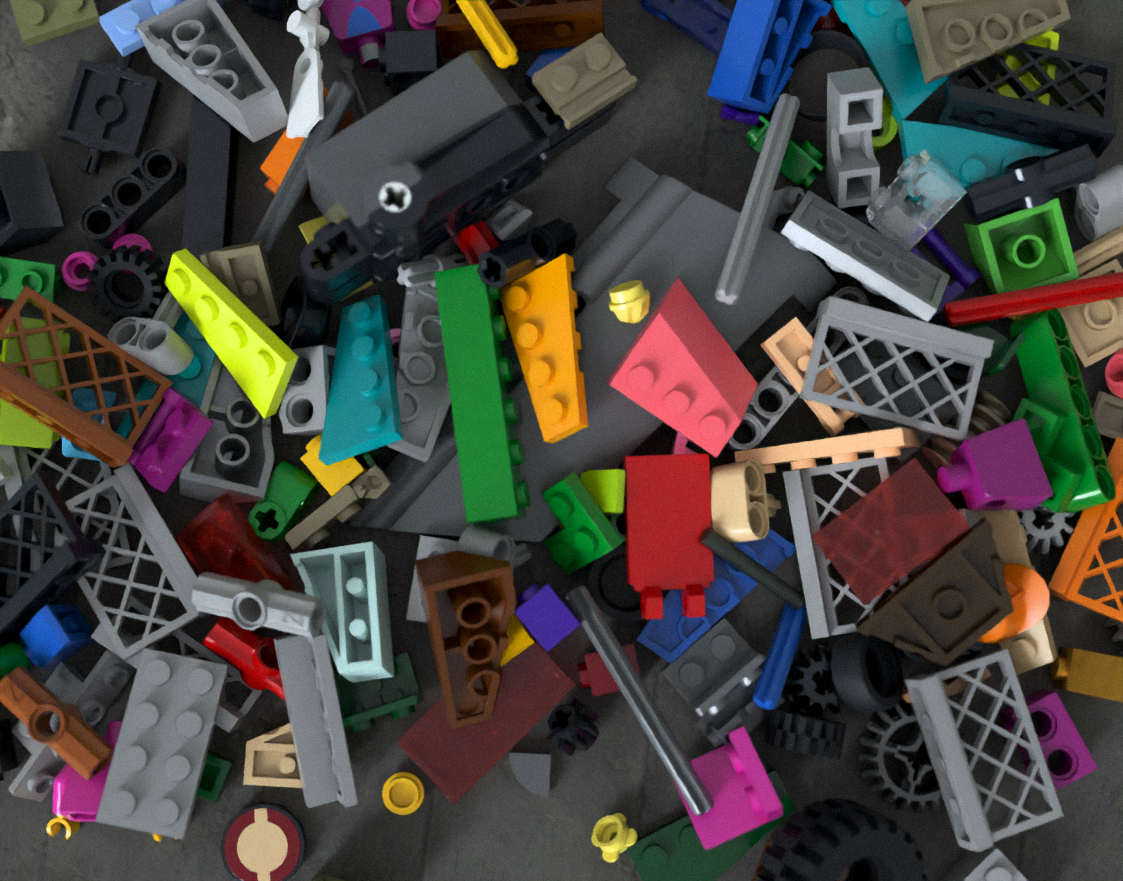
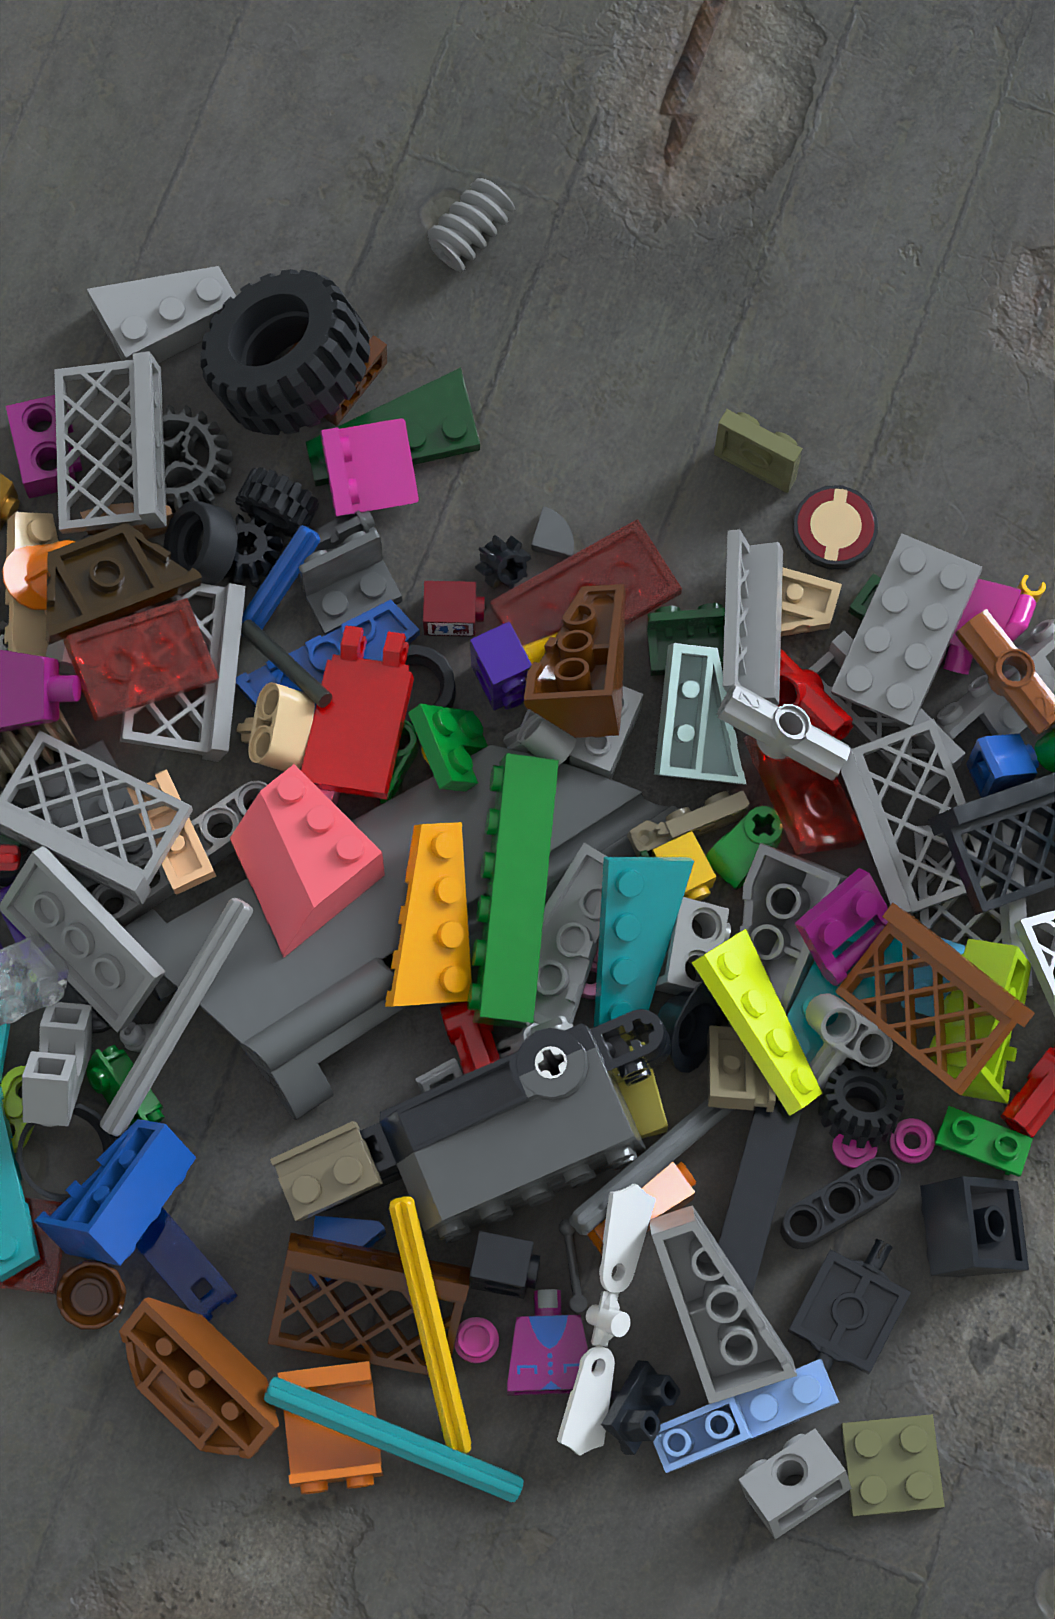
camera: 170 degrees left, 10 degrees down
(403, 793) = (686, 543): yellow plate -> none
(526, 253) = (430, 1026): black piece -> none
(604, 835) = (496, 463): light yellow plate -> none
(606, 489) = (412, 771): lime slope -> none
(630, 301) = (339, 940): light yellow plate -> none
(640, 700) = (431, 567): dark grey axle -> none
(841, 449) = (164, 752): light nougat wing -> none

